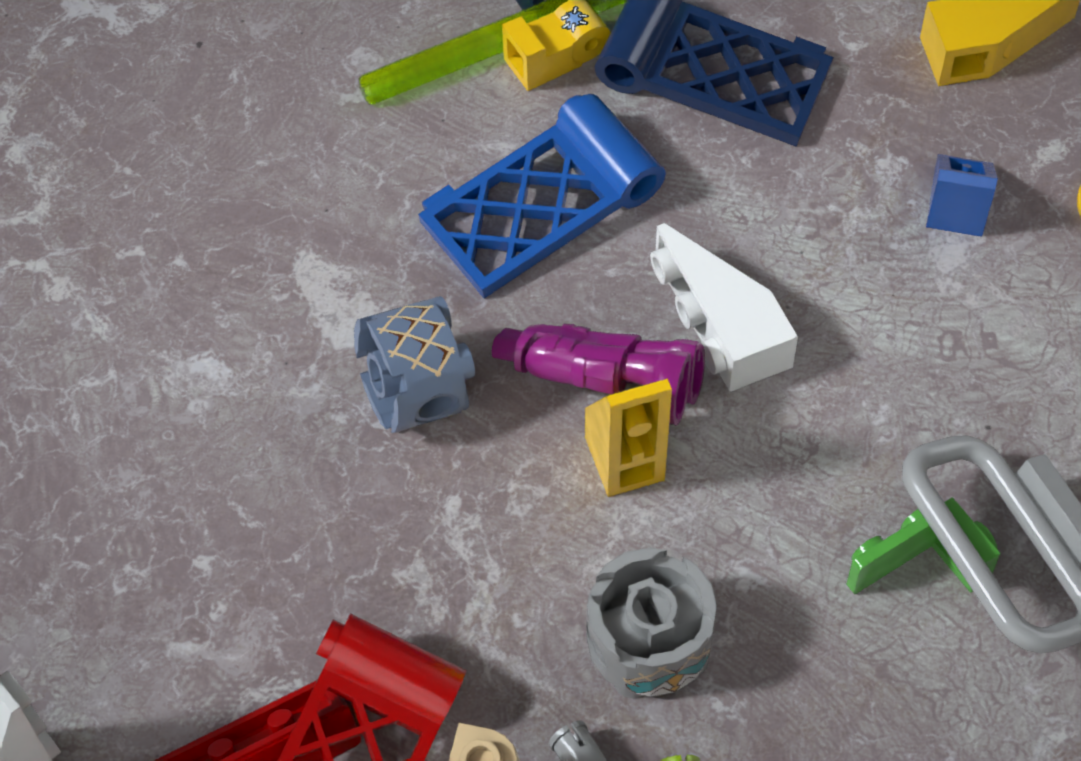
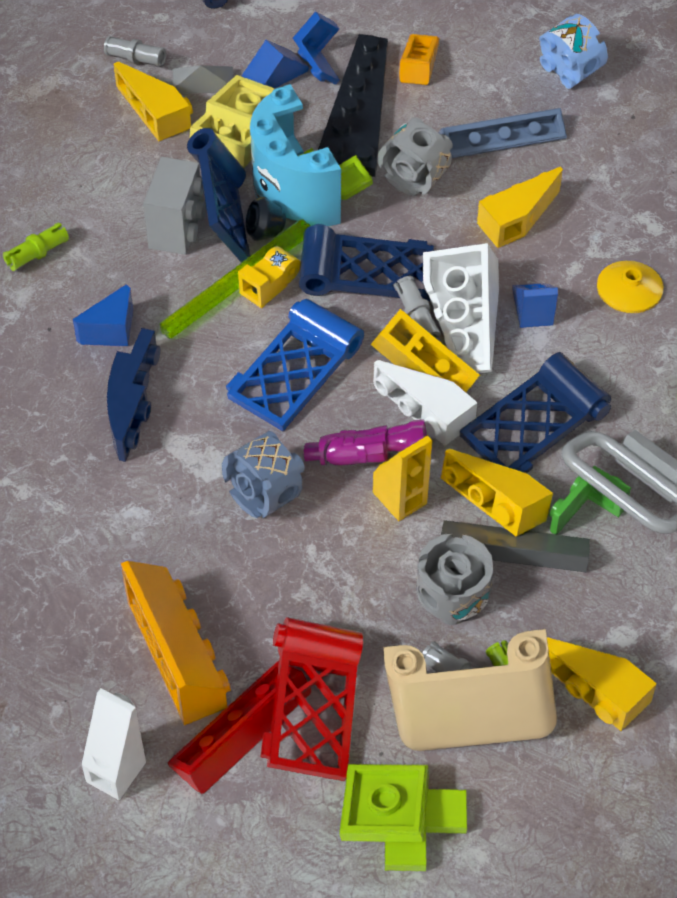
camera: 20 degrees left, 5 degrees down
(170, 597) = (175, 641): none -> light orange slope
(257, 183) = (127, 392): none -> dark blue slope
(283, 52) = (106, 321): none -> blue slope
(744, 231) = (414, 348): none -> yellow slope
(764, 156) = (415, 305): none -> light grey pin
(787, 596) = (528, 548): none -> dark grey slope
(788, 502) = (499, 491): none -> yellow slope
(848, 158) = (465, 300): none -> white wedge
(966, 359) = (566, 386): none -> dark blue piece

